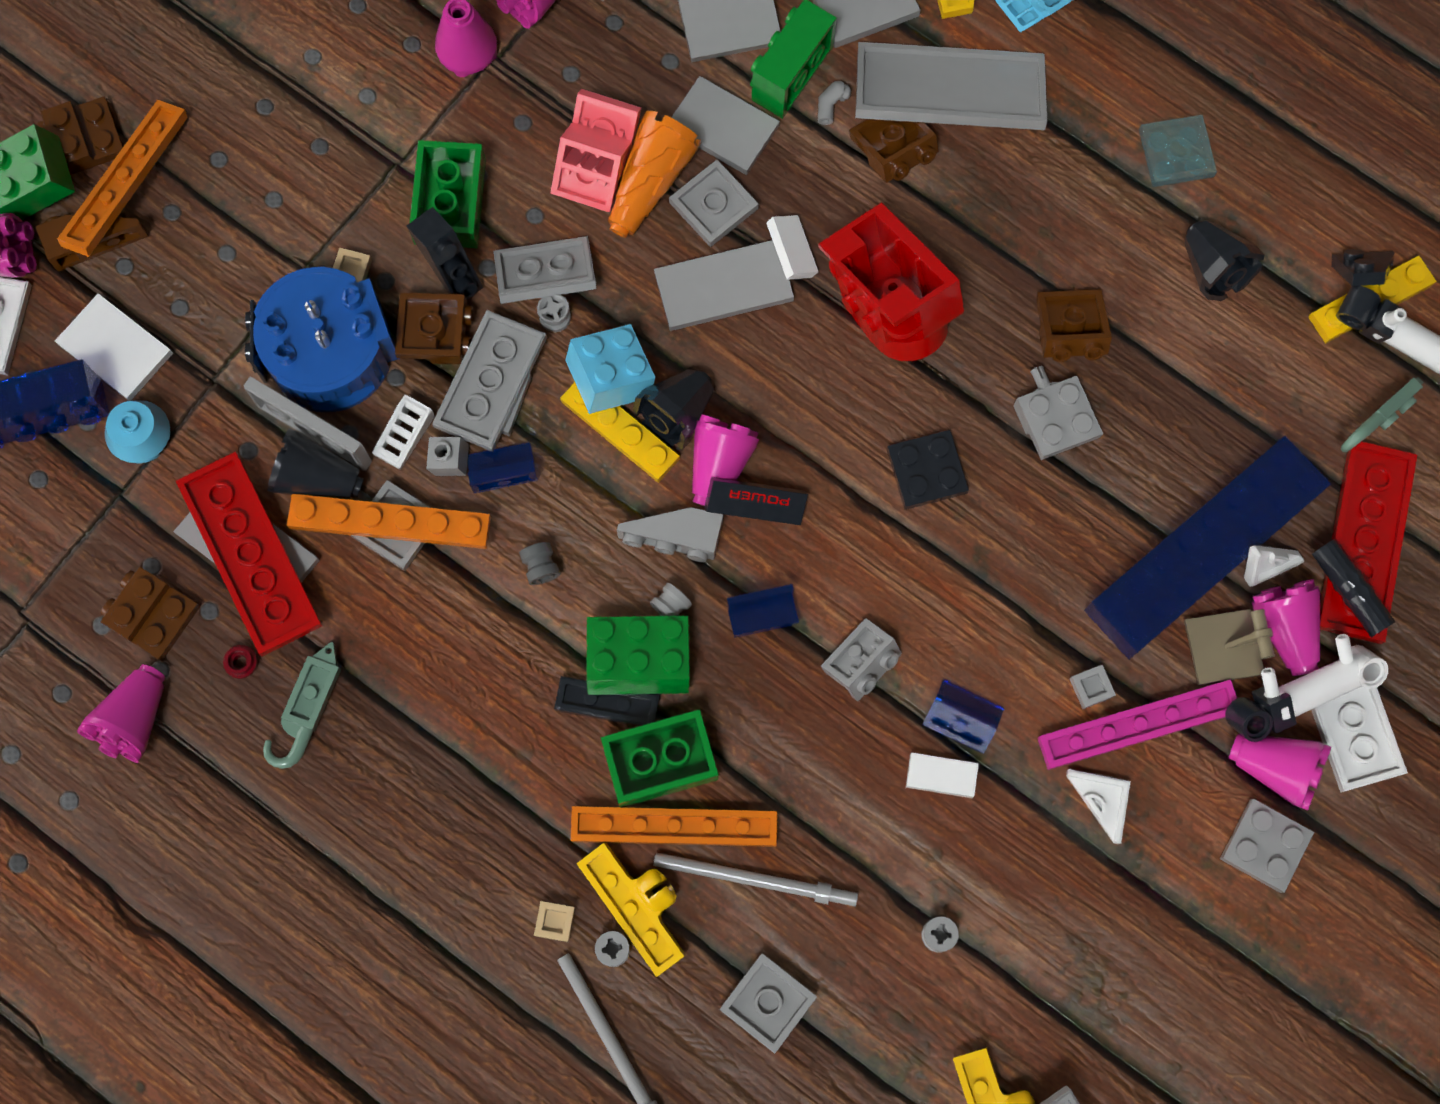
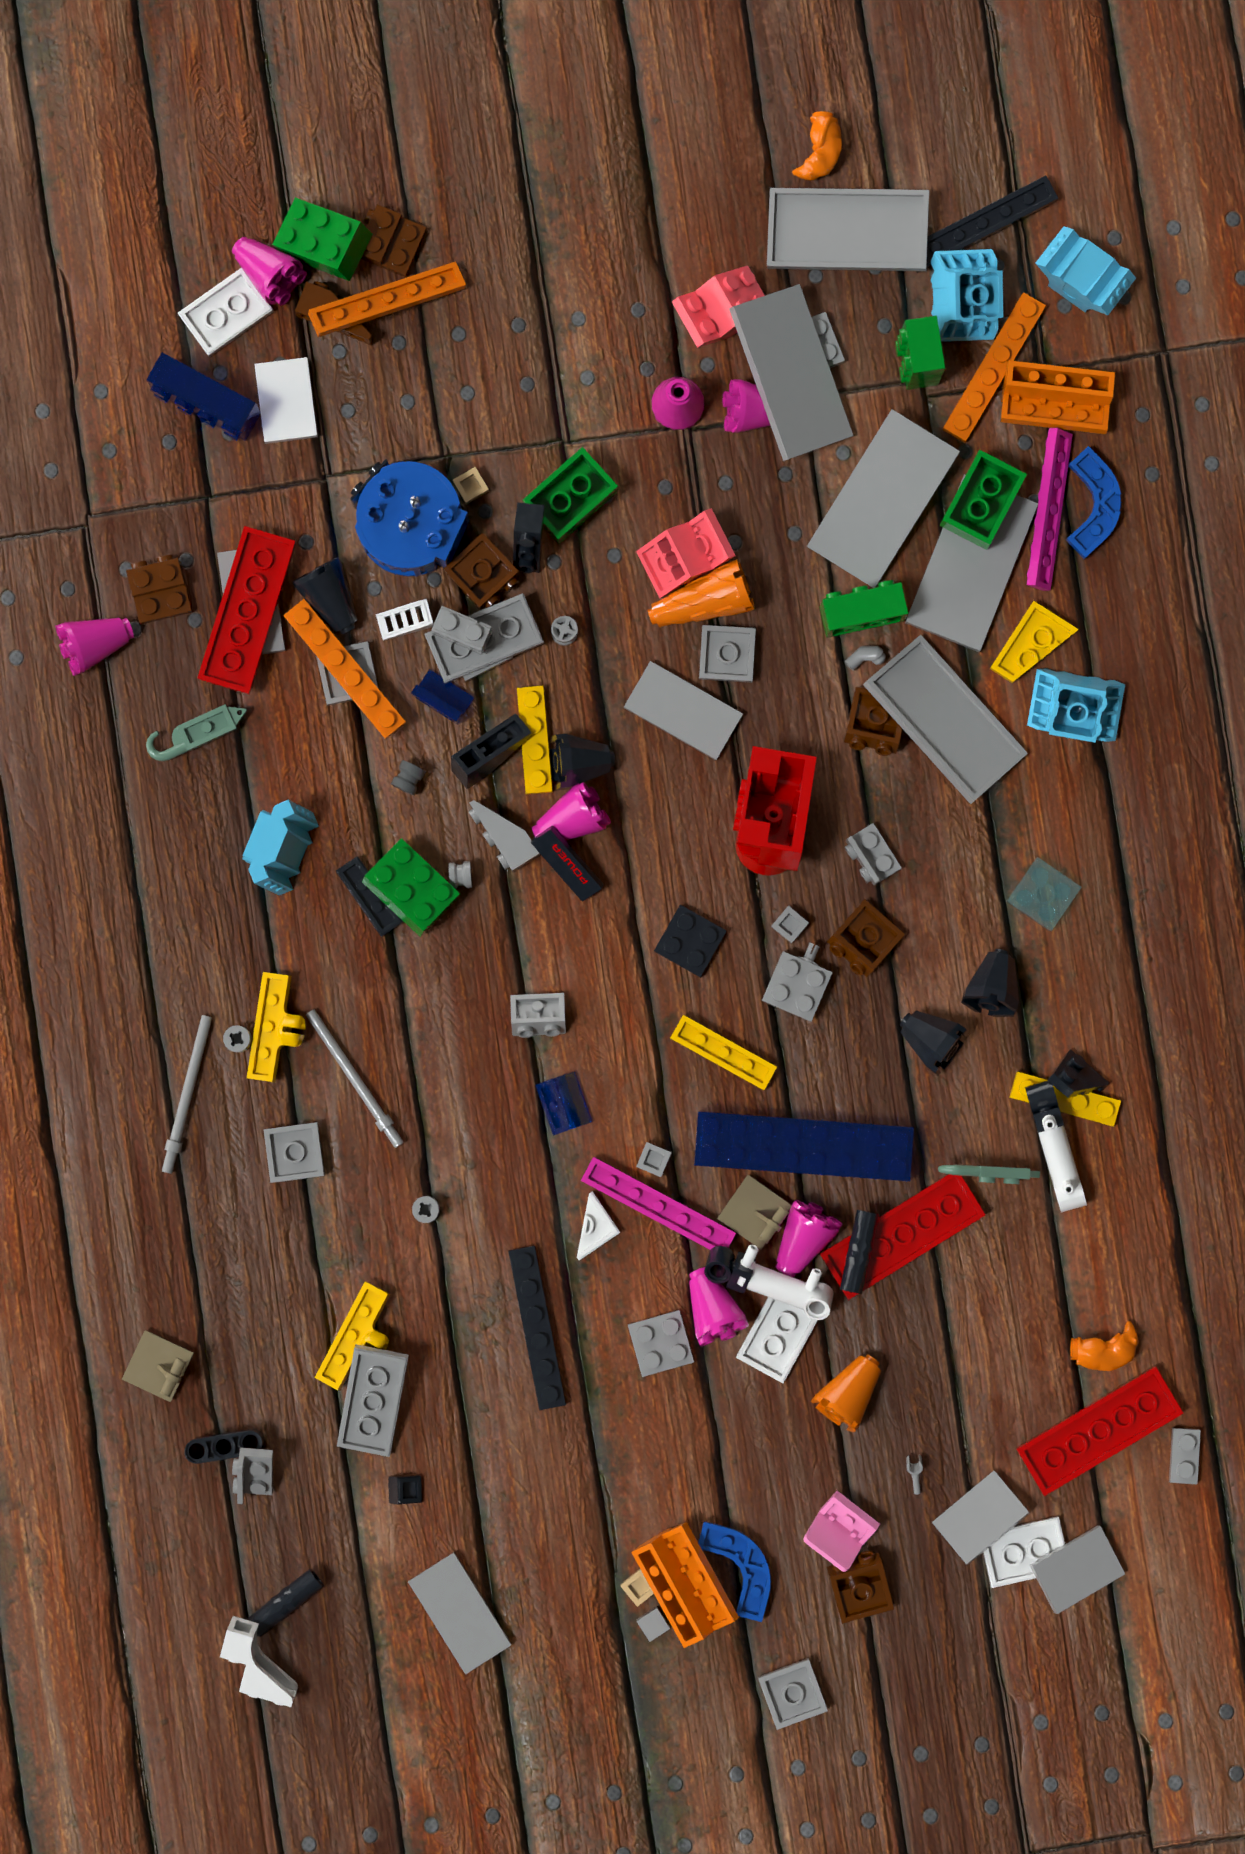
camera: 45 degrees right, 10 degrees up
(137, 431) = (251, 469): medium azure cone -> none
(231, 657) = (178, 663): dark red plate -> none
(308, 424) = (352, 564): light grey tile -> none
(454, 461) = (421, 666): light grey plate -> none
(463, 384) = (461, 630): none -> light grey brick
(479, 732) = (279, 845): none -> medium azure slope
(544, 269) = (583, 599): light grey tile -> none
(554, 921) = (220, 992): tan plate -> none
(589, 472) = (489, 751): none -> black slope
(609, 368) = (560, 700): medium azure brick -> none
(659, 758) = (365, 959): green brick -> none
(674, 826) = (337, 1004): orange plate -> none
(726, 124) = (783, 608): light grey tile -> none
(762, 611) = (508, 931): clear blue panel -> none
(792, 247) = (746, 727): white tile -> none
(942, 775) = (517, 1124): white tile -> none
(997, 373) = (789, 924): none -> light grey plate
(1004, 252) = (872, 854): none -> light grey bracket
(1055, 535) = (723, 1052): none -> yellow plate
(1147, 943) = (537, 1328): none -> black plate
(1218, 350) = (933, 1039): none -> black cone
(1269, 562) = (828, 1190): white tile -> none

